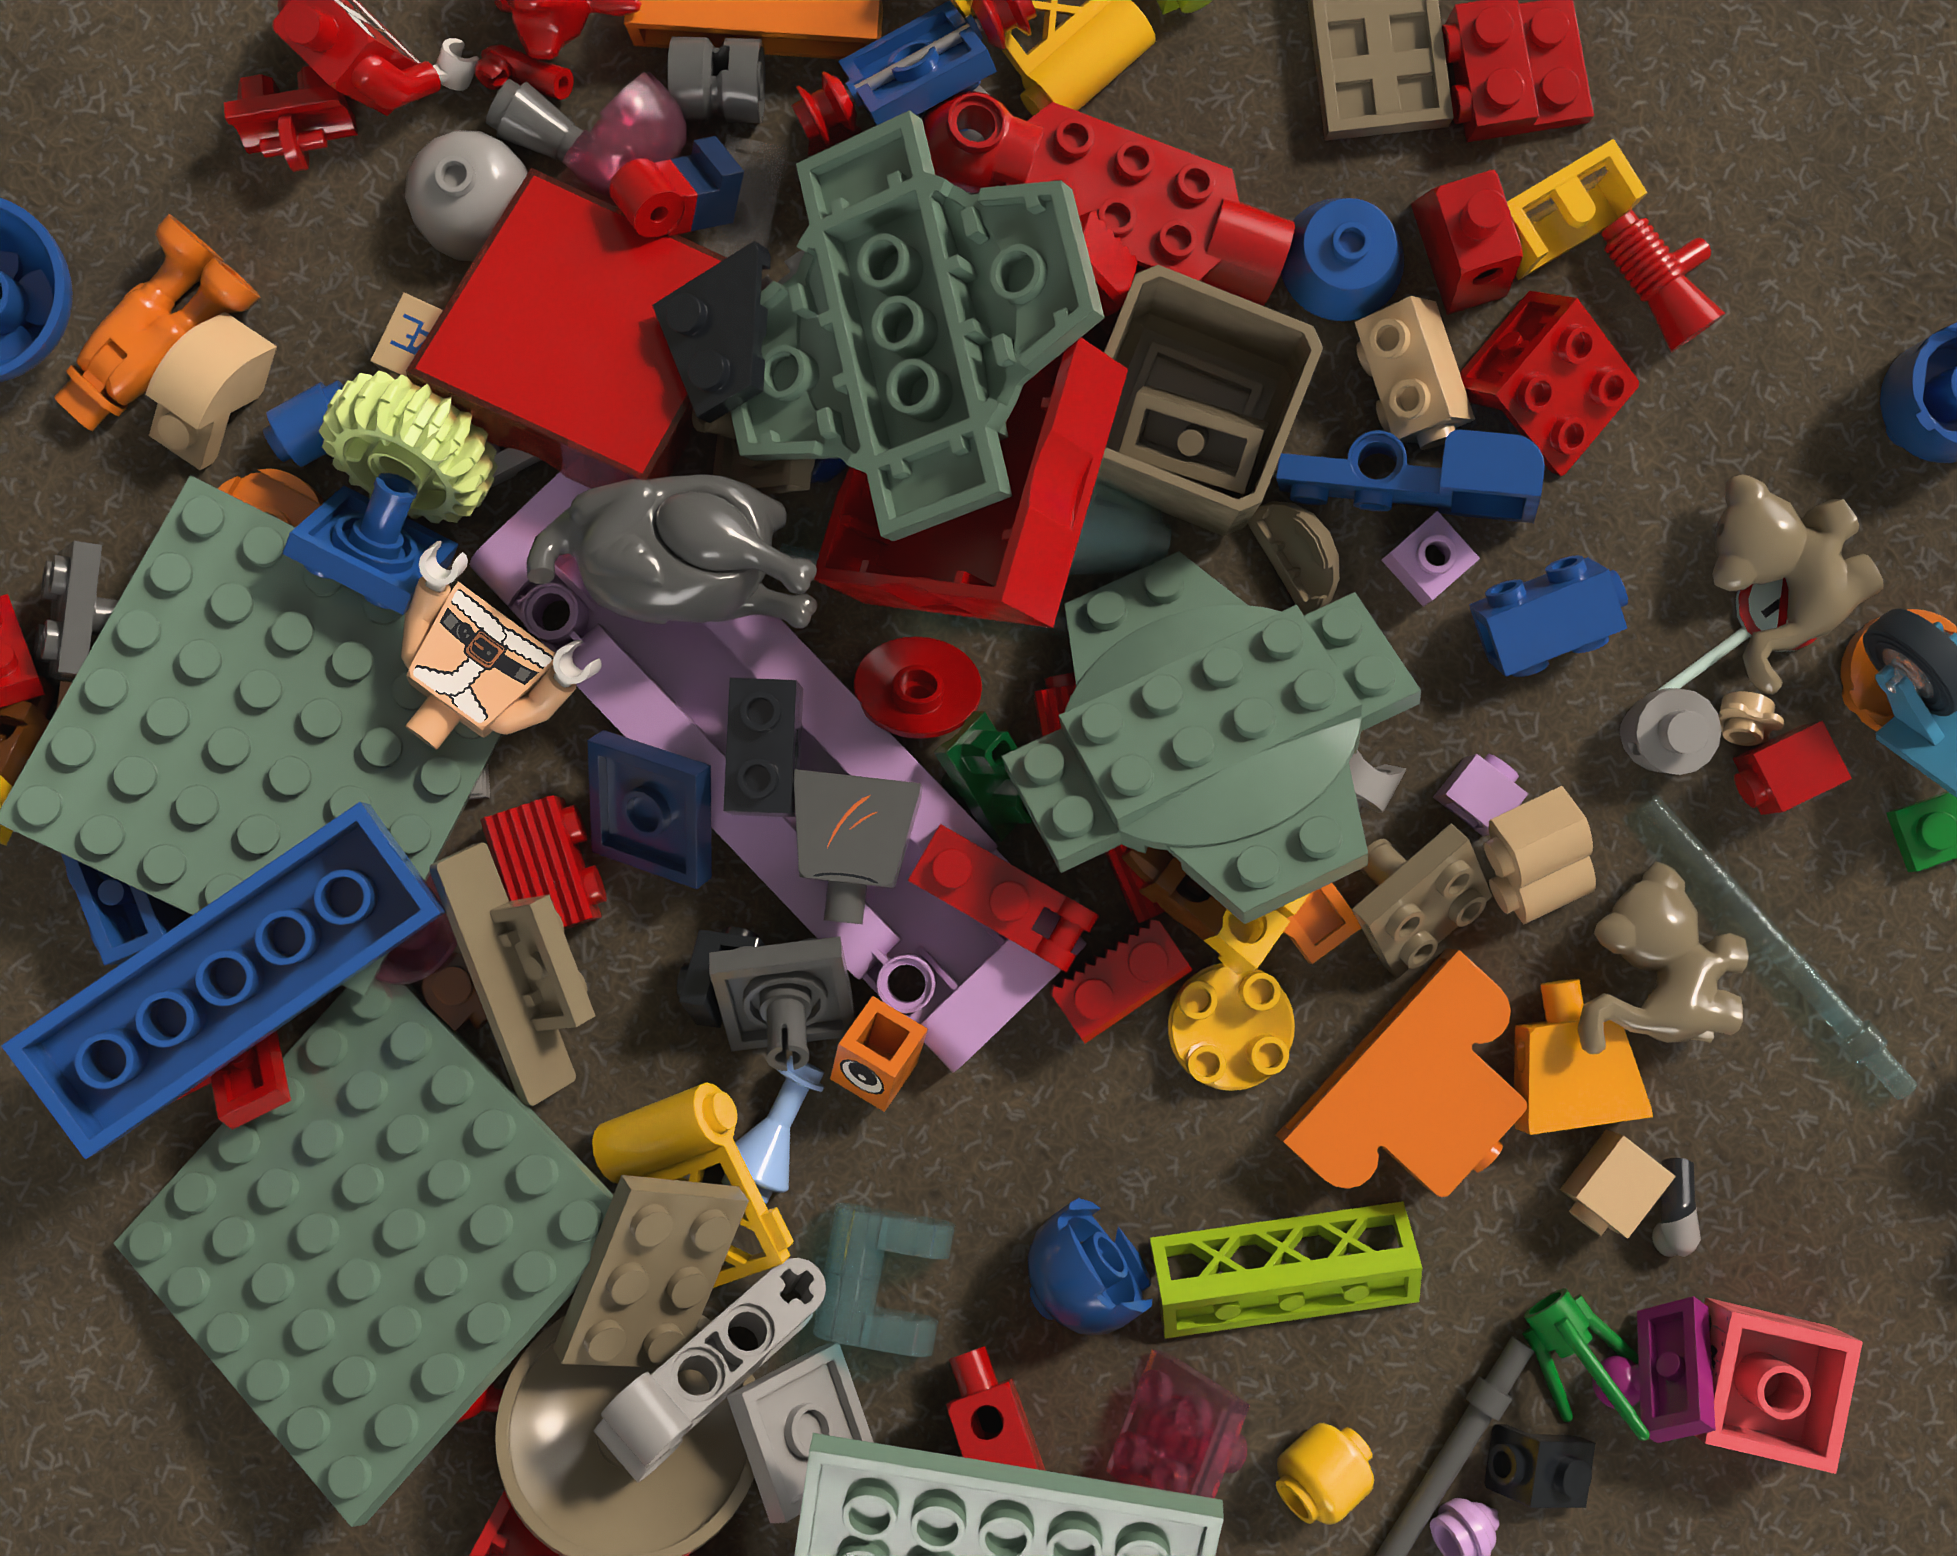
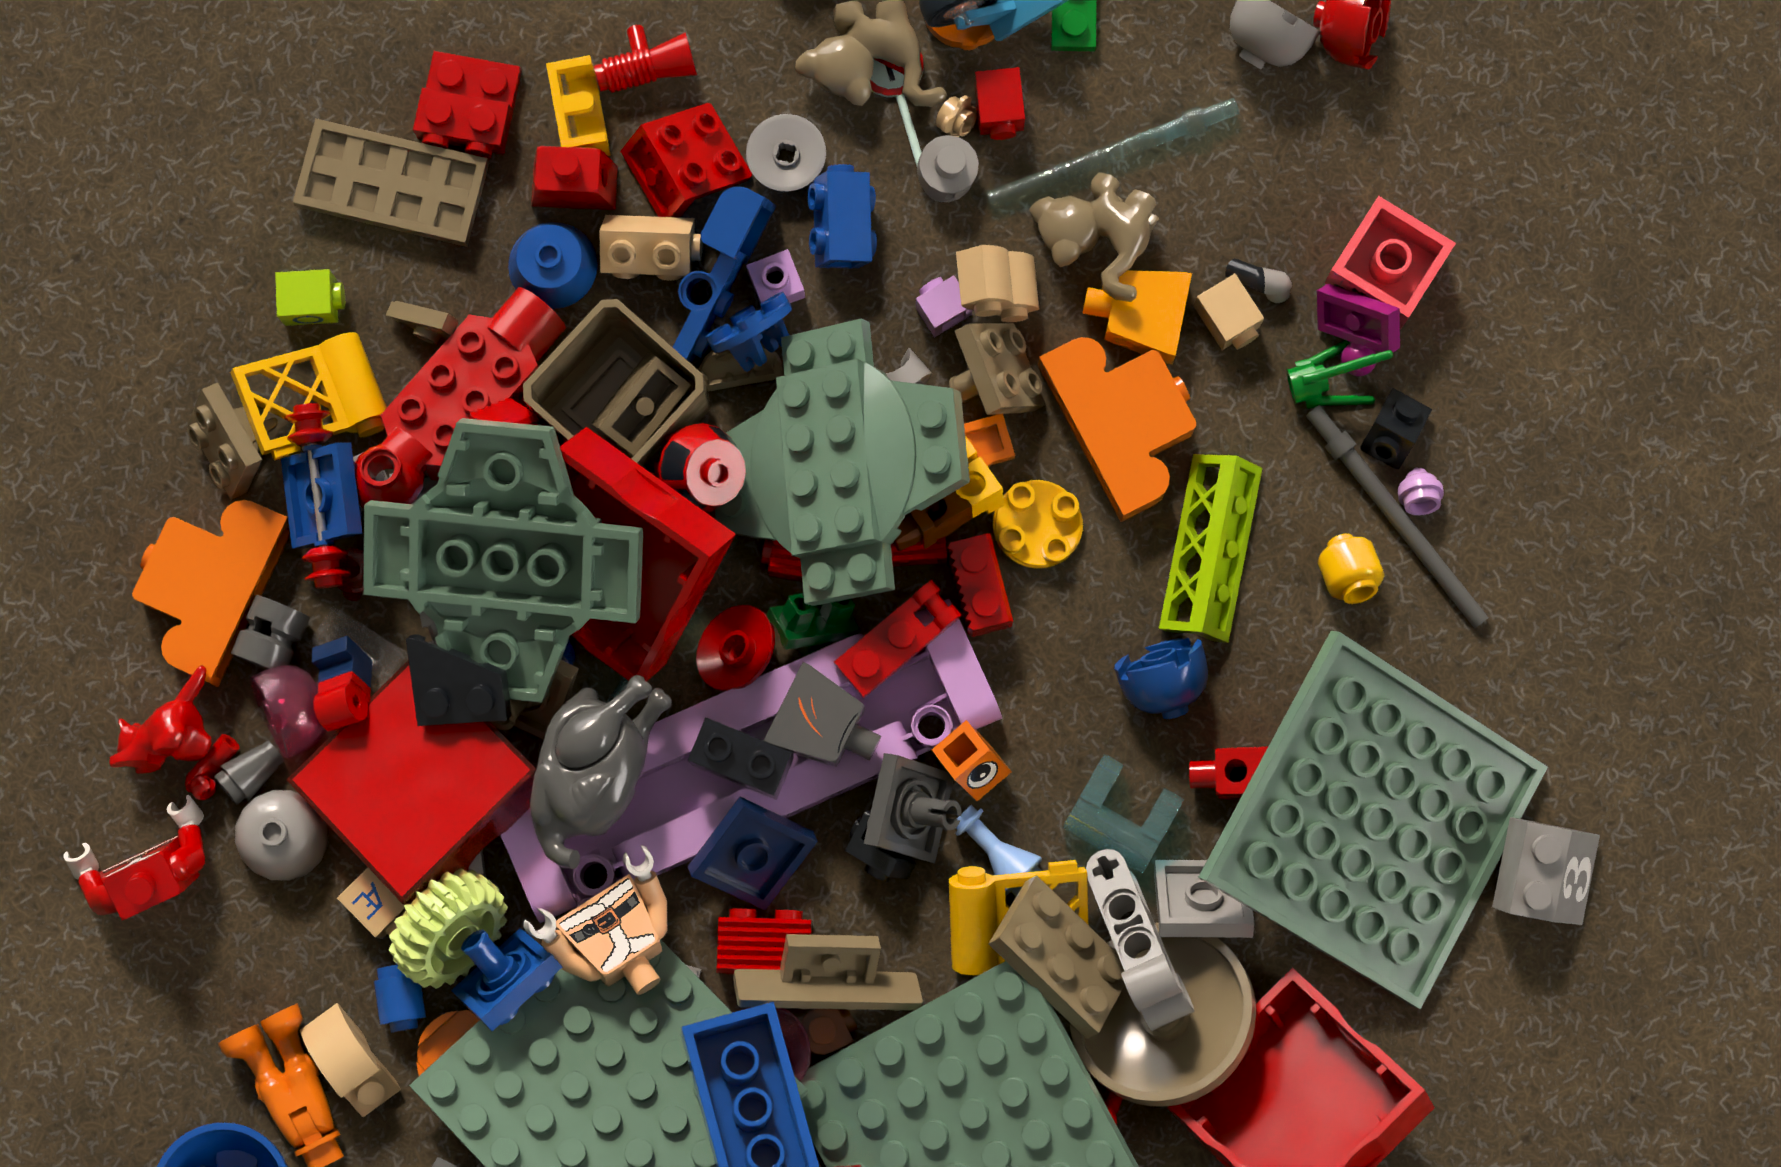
camera: 70 degrees left, 5 degrees down
(289, 120) = (183, 939): red hips -> none
(1135, 548) = (702, 465): none -> cone
(1179, 1431) = (1284, 647): clear pink plate -> none
(1202, 125) = (427, 323): none -> dark tan plate
(1353, 547) = (751, 328): none -> blue plate
(1598, 480) = (791, 134): none -> light grey piece

